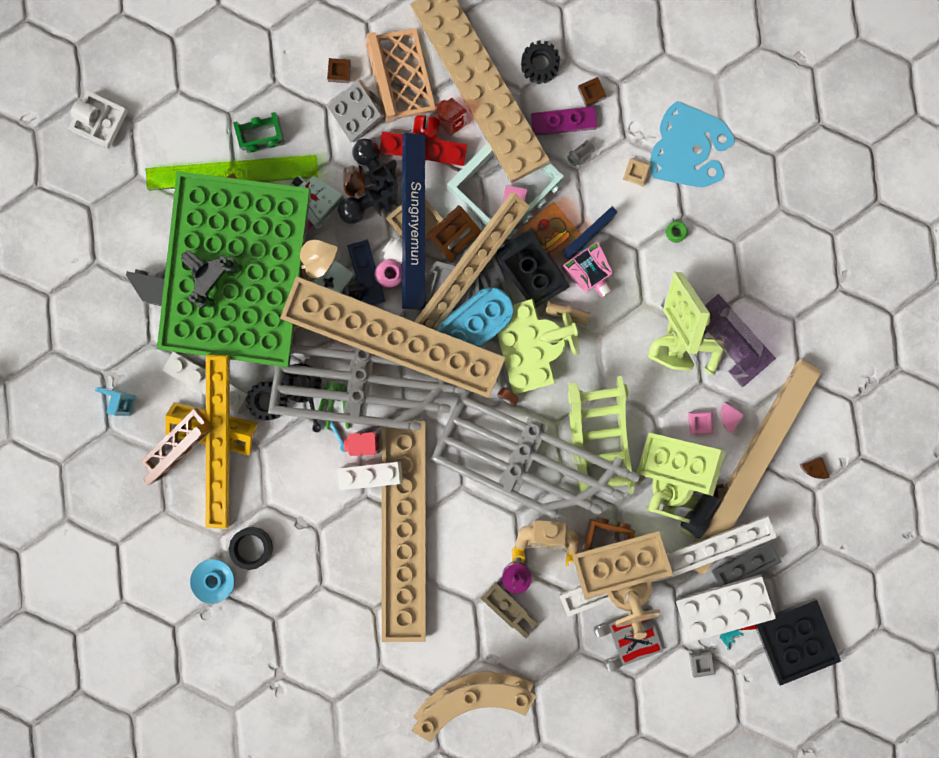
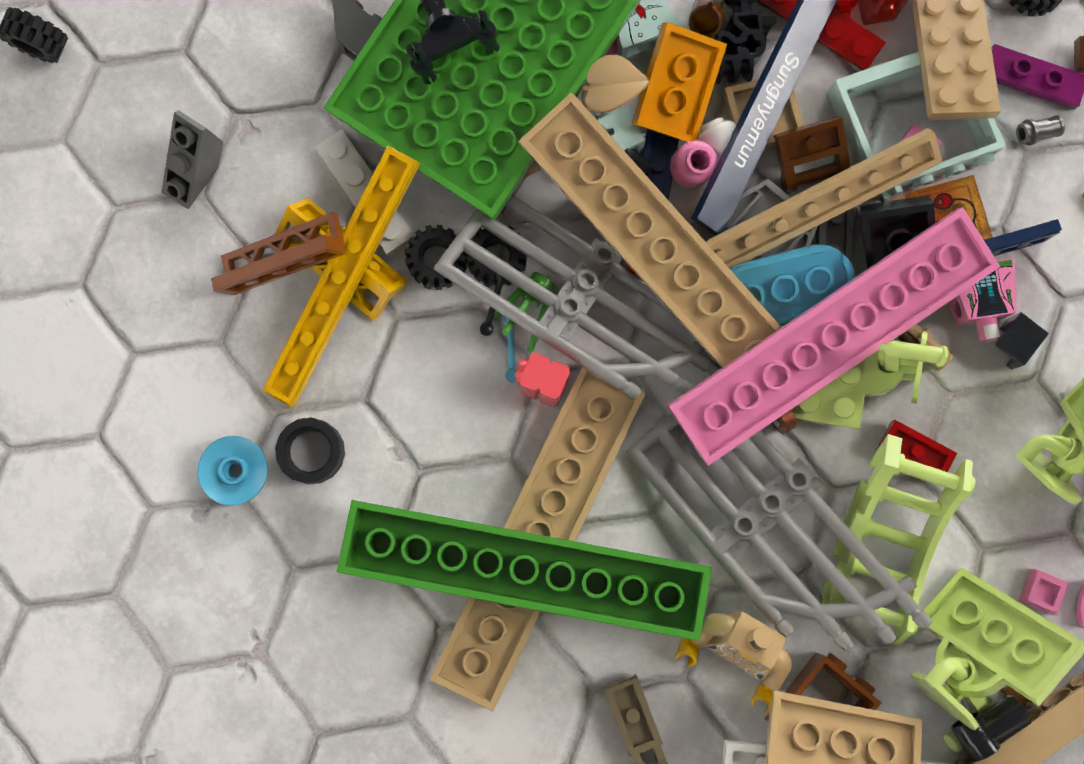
camera: 25 degrees right, 5 degrees down
(92, 415) = (190, 160): none -> dark grey slope
(120, 402) = (233, 156): medium azure panel -> none
(356, 232) = (679, 83): none -> light orange plate
(370, 476) = (530, 431): white plate -> none
(402, 557) = (525, 570): none -> bright green brick
(513, 340) = (833, 336): none -> bright pink plate
(516, 577) = (670, 684): magenta piece -> none
(594, 378) = (920, 447): none -> red plate
(622, 286) = (1020, 339): none -> black panel

